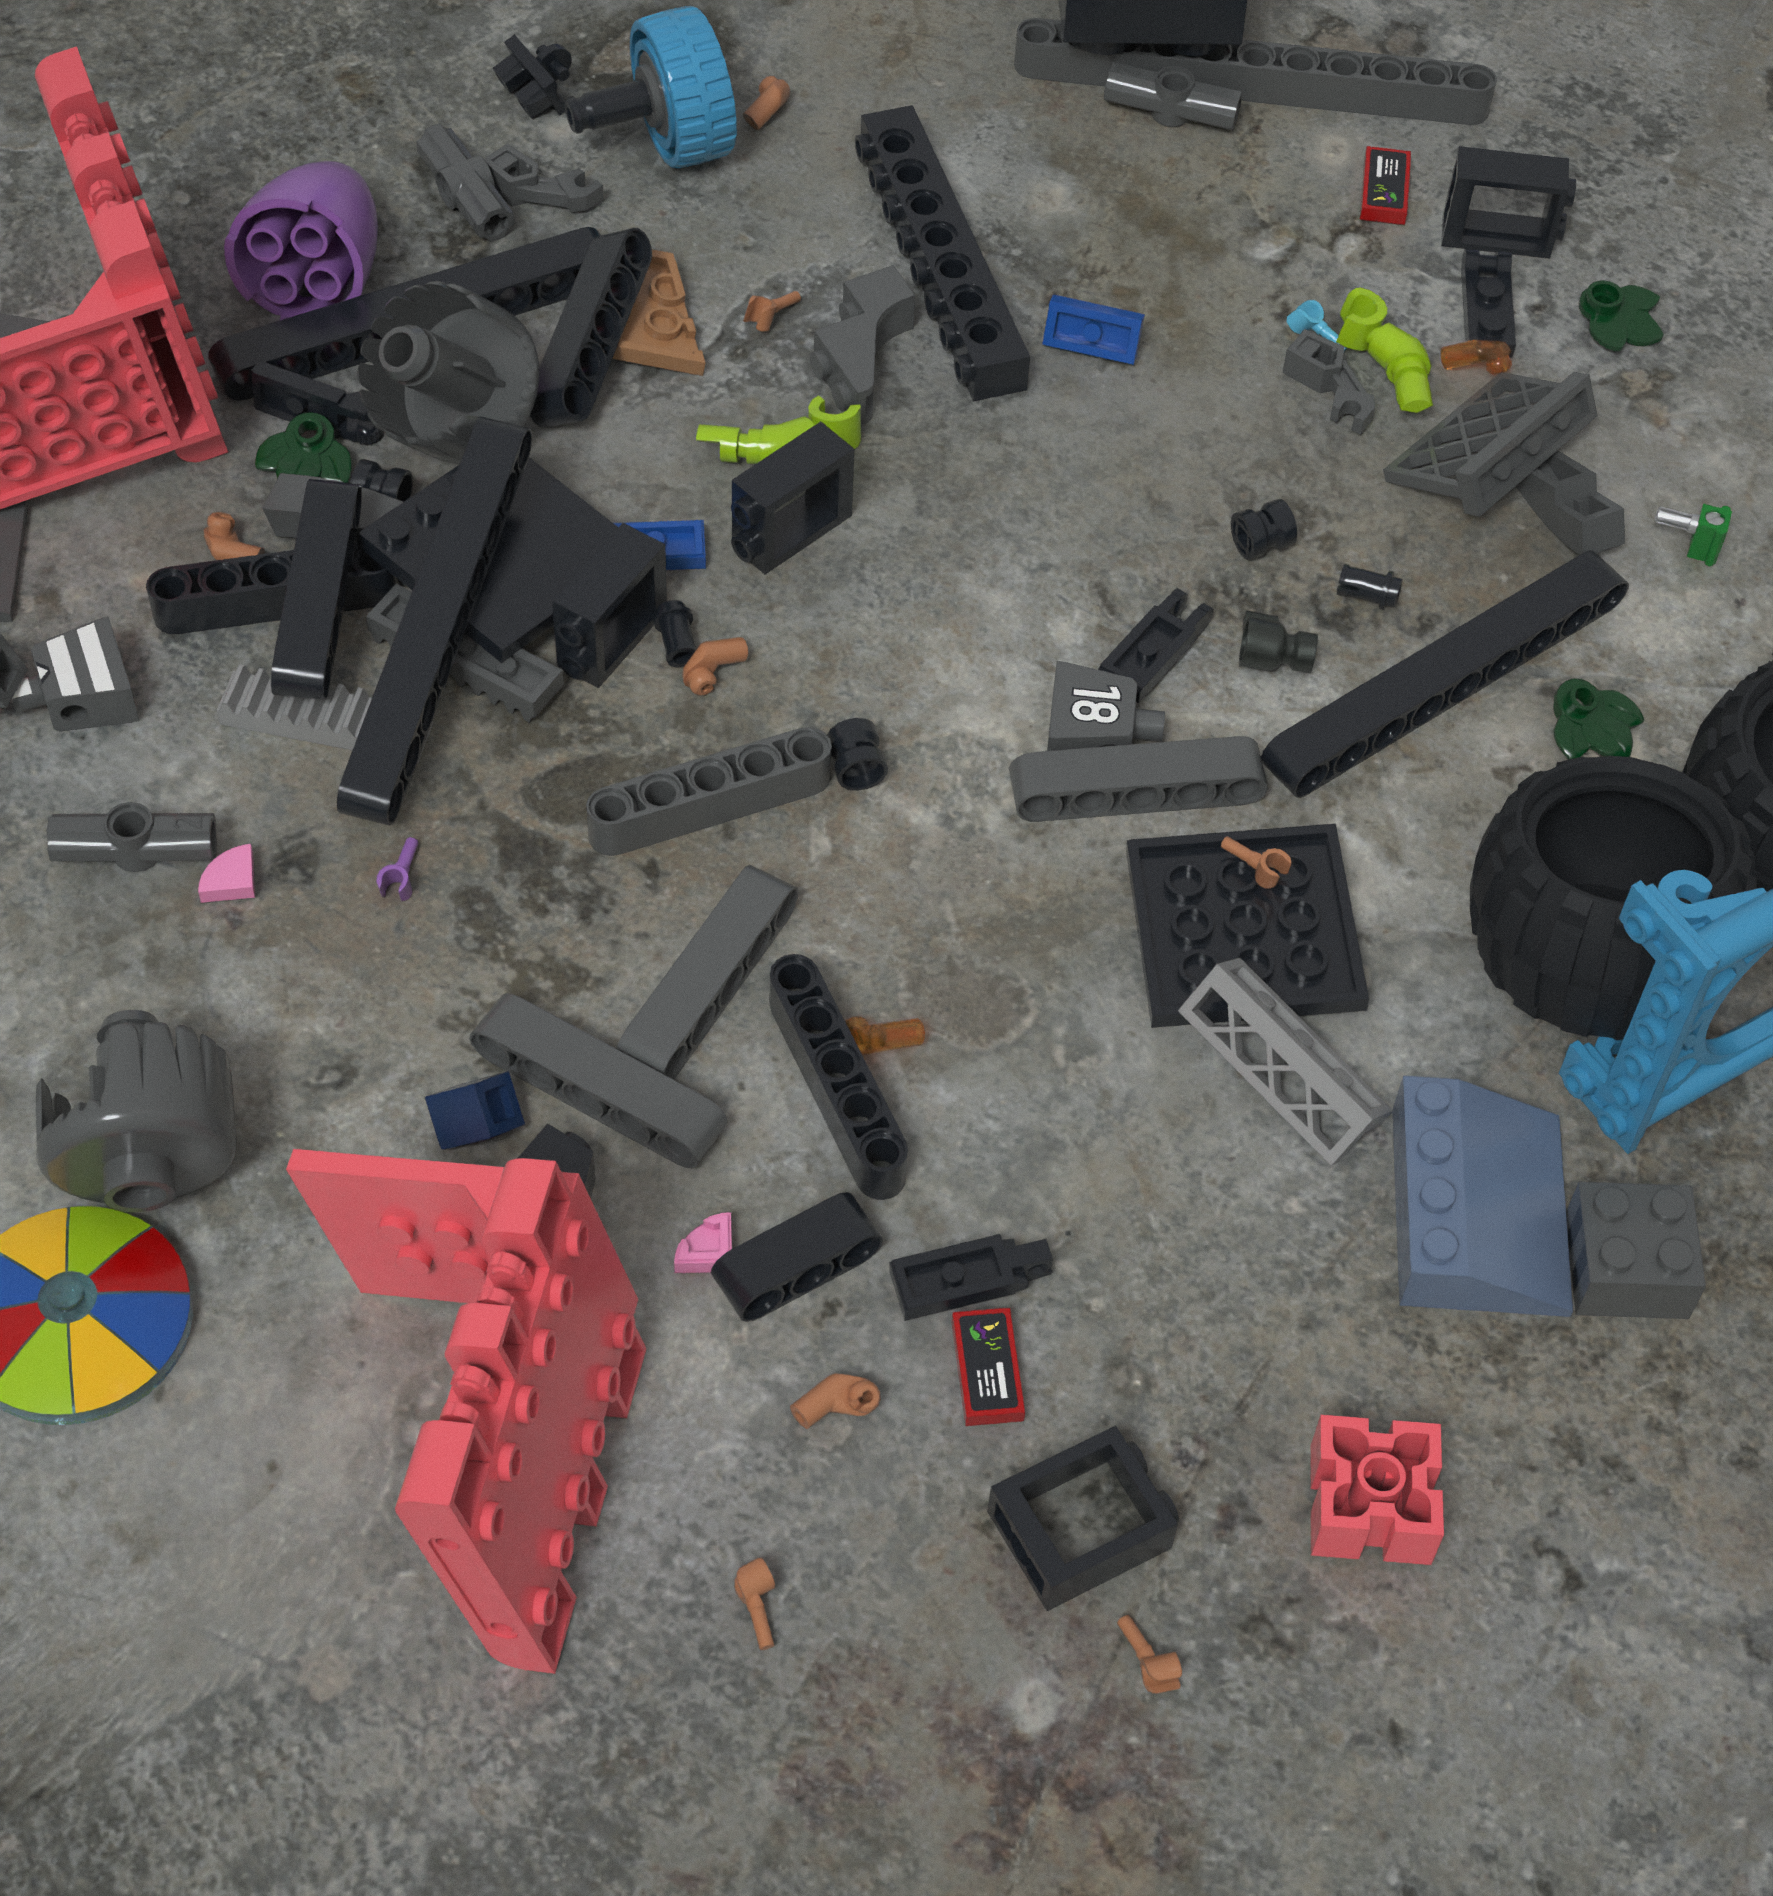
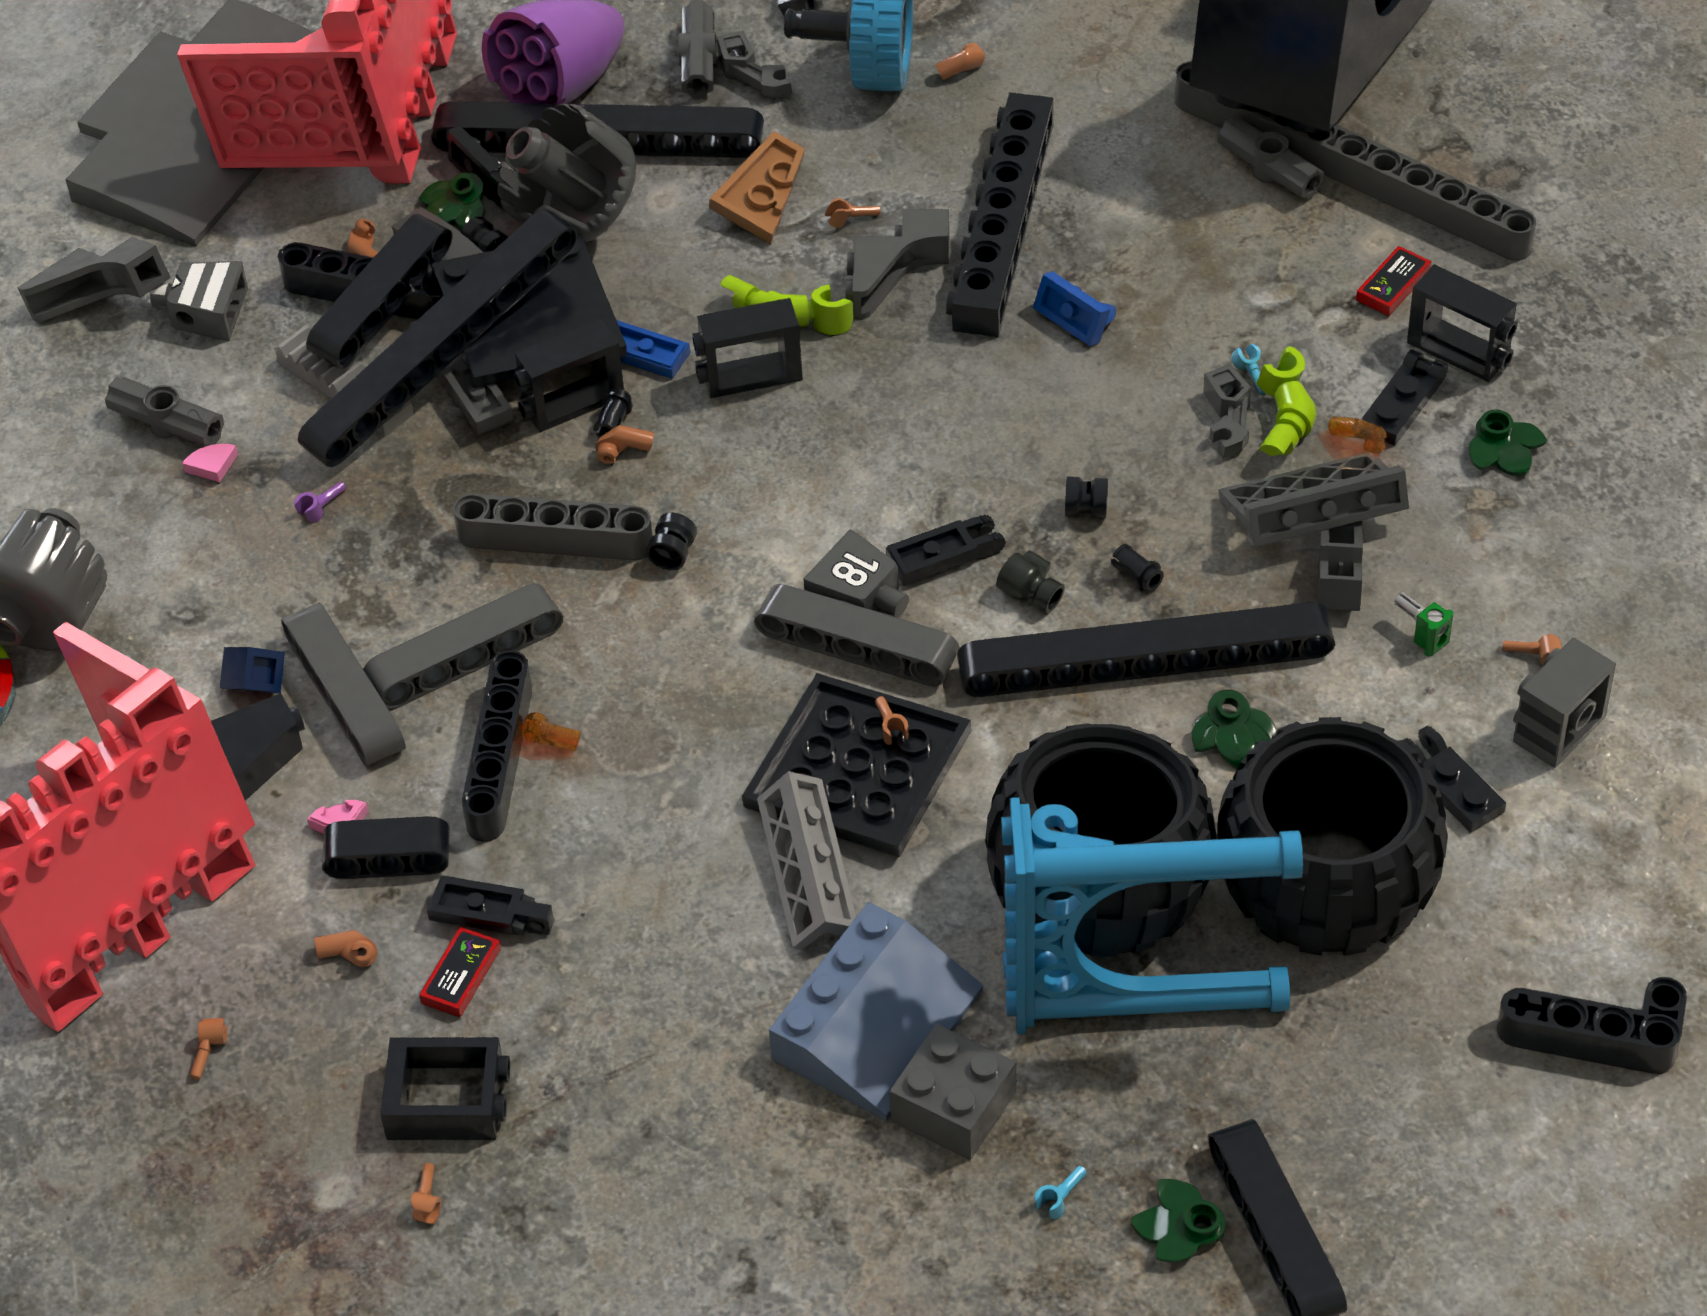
camera: 35 degrees right, 5 degrees down
(591, 327) = (684, 185): black beam -> none
(1376, 1490) = (642, 1157): coral brick -> none

